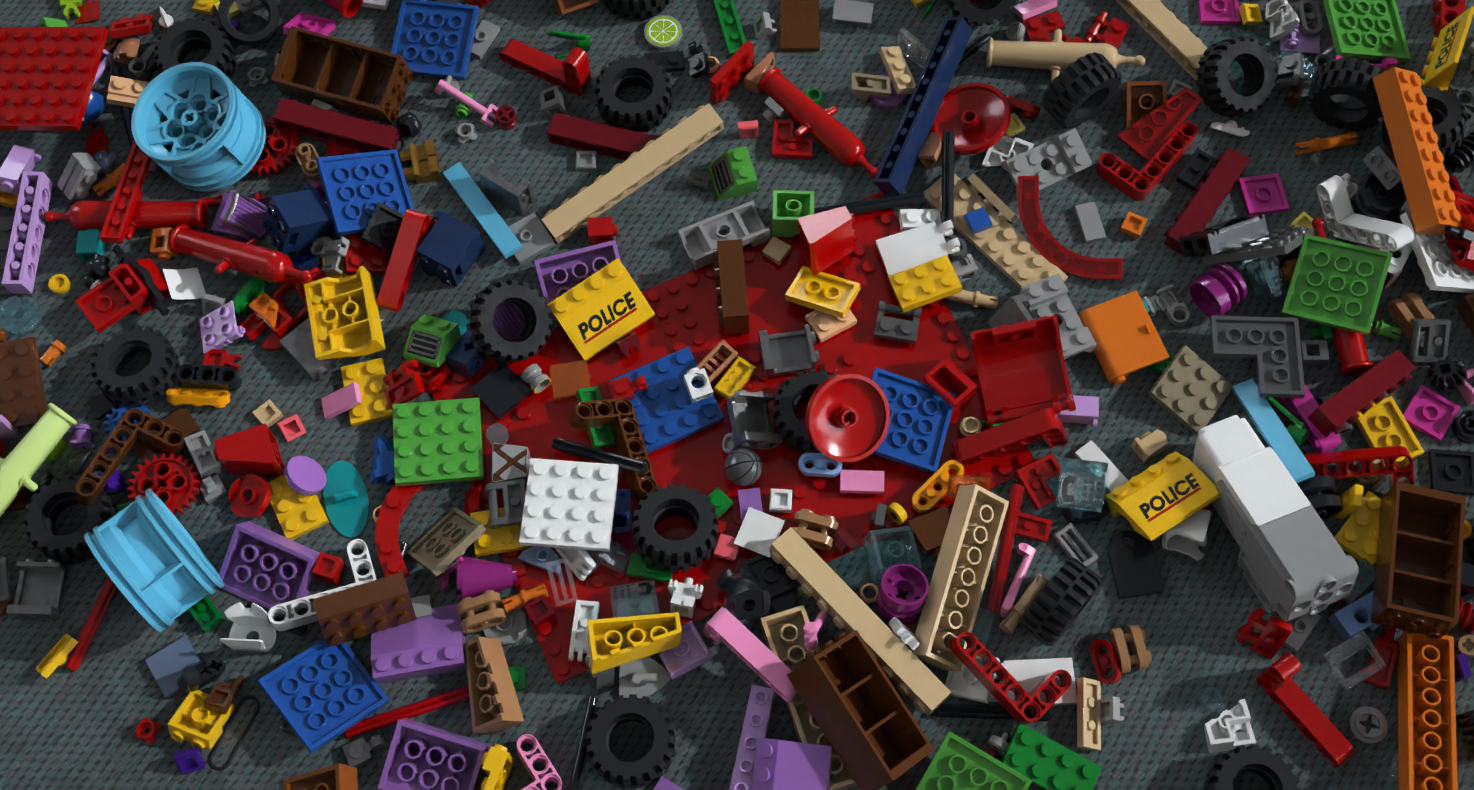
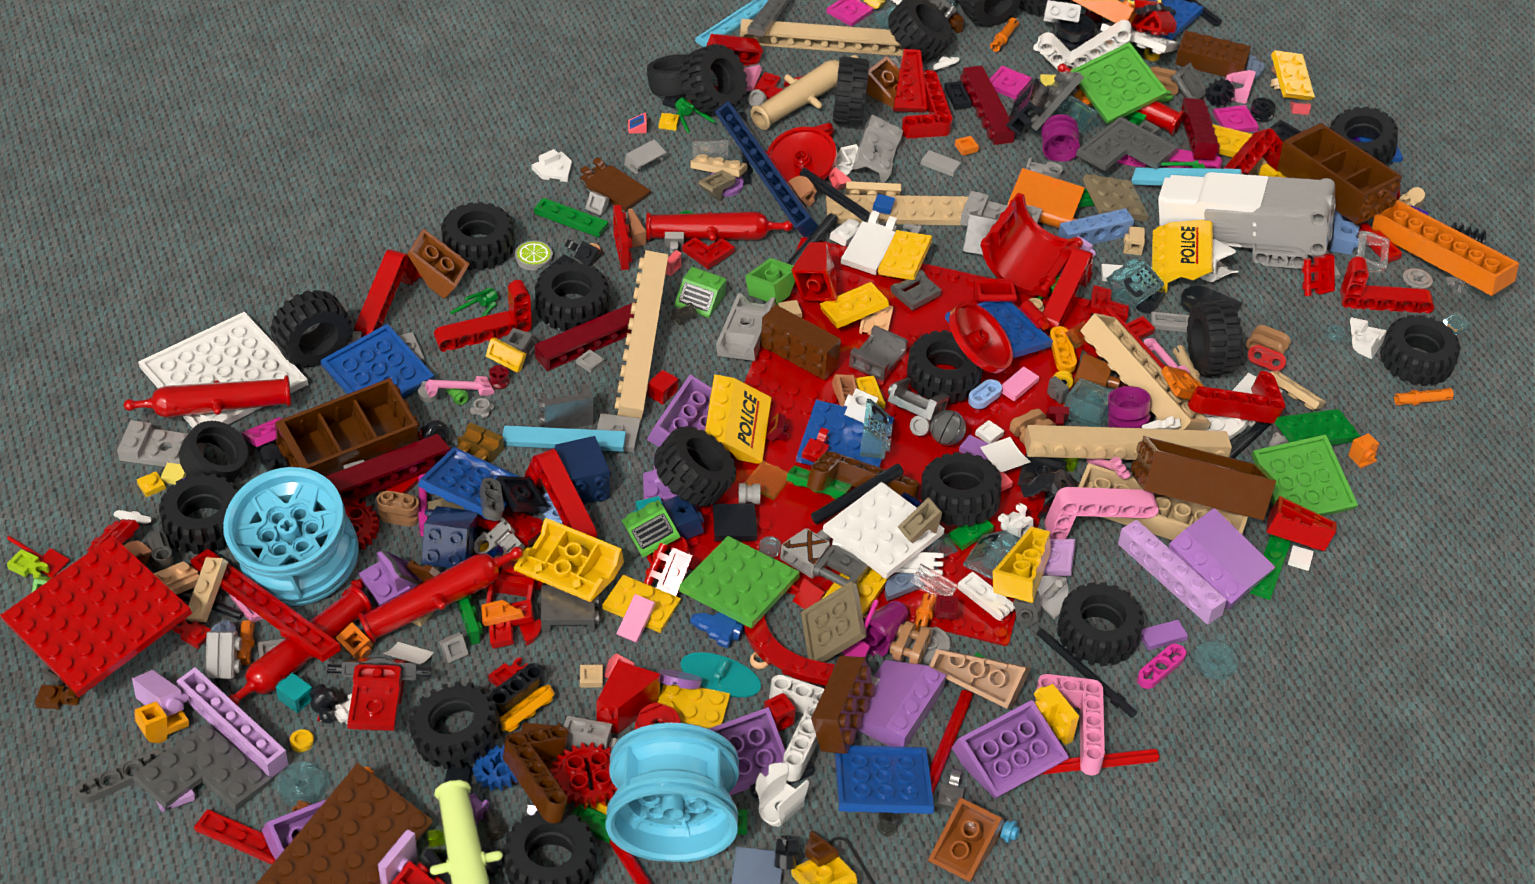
camera: 55 degrees left, 20 degrees down
(114, 127) = (206, 588): none -> tan plate
(220, 328) = (481, 651): lavender hinge -> none
(260, 234) = (422, 572): none -> reddish brown tile
(350, 208) = (491, 499): none -> dark grey beam
(532, 103) = (506, 355): none -> yellow plate
(581, 527) = (920, 520): none -> dark tan slope
(674, 416) = (875, 431): none -> clear light blue slope
(949, 435) = (1034, 315): none -> red cylinder
(974, 166) = (838, 179): none -> coral slope
(975, 299) = (940, 245): tan pin -> none
(980, 616) = (1180, 382): none -> orange wing
(1050, 248) = (936, 188): red plate -> none
(1111, 710) = (1303, 377): light grey tile -> none
(1114, 31) = (810, 60): red plate -> none
(1130, 403) = (1098, 227): none -> medium blue brick

